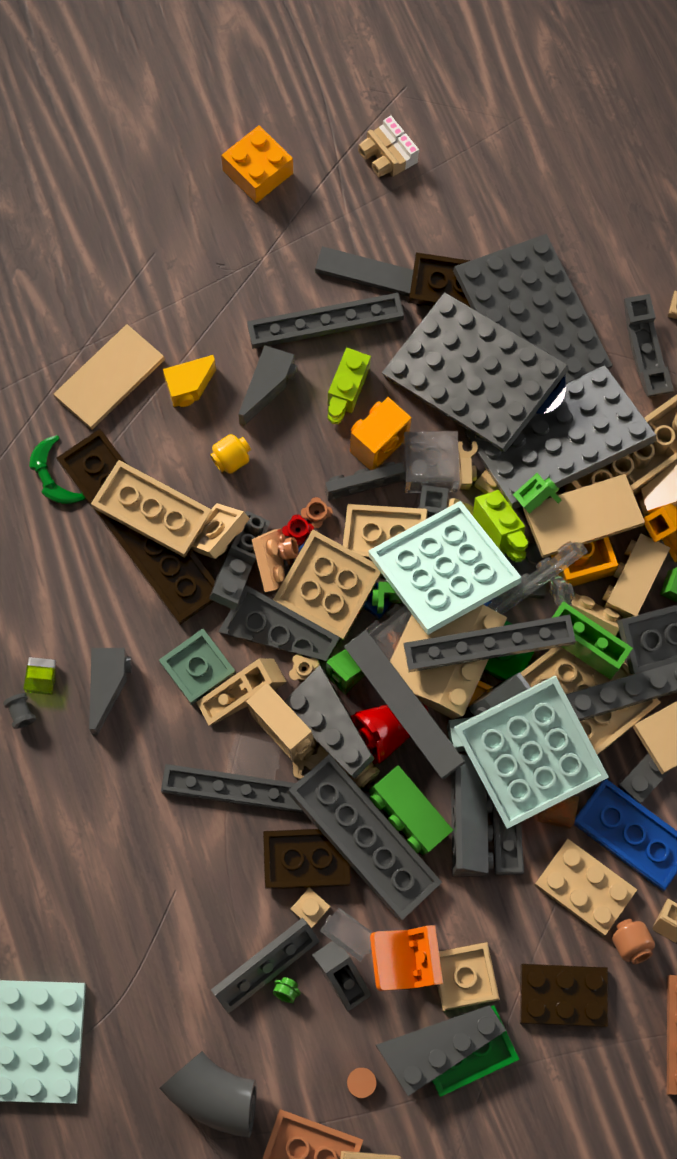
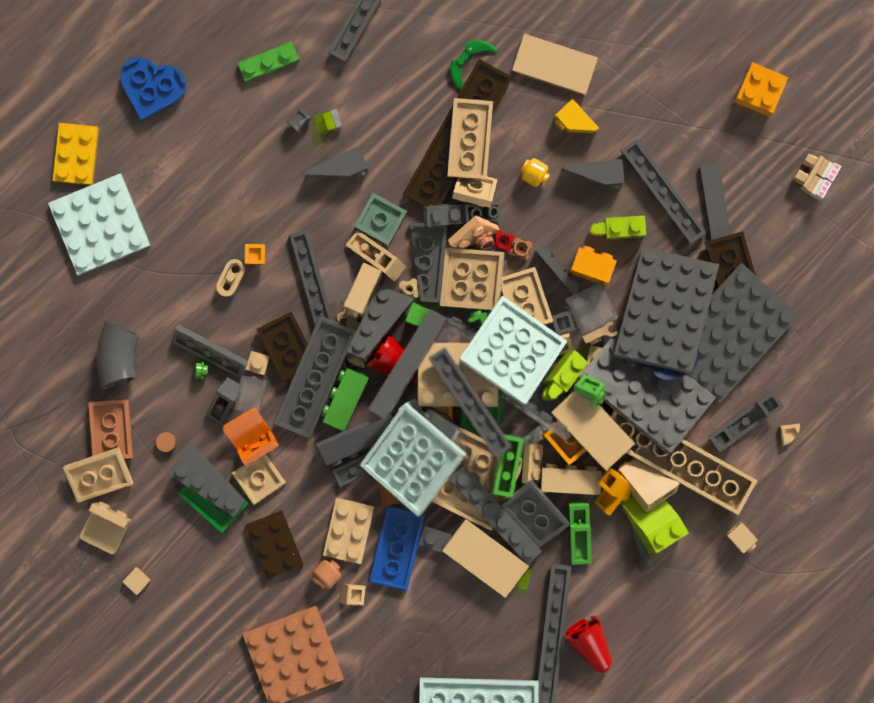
camera: 70 degrees right, 15 degrees up
(165, 844) = (255, 254): none -> light orange tile
(181, 892) = (231, 278): none -> tan plate

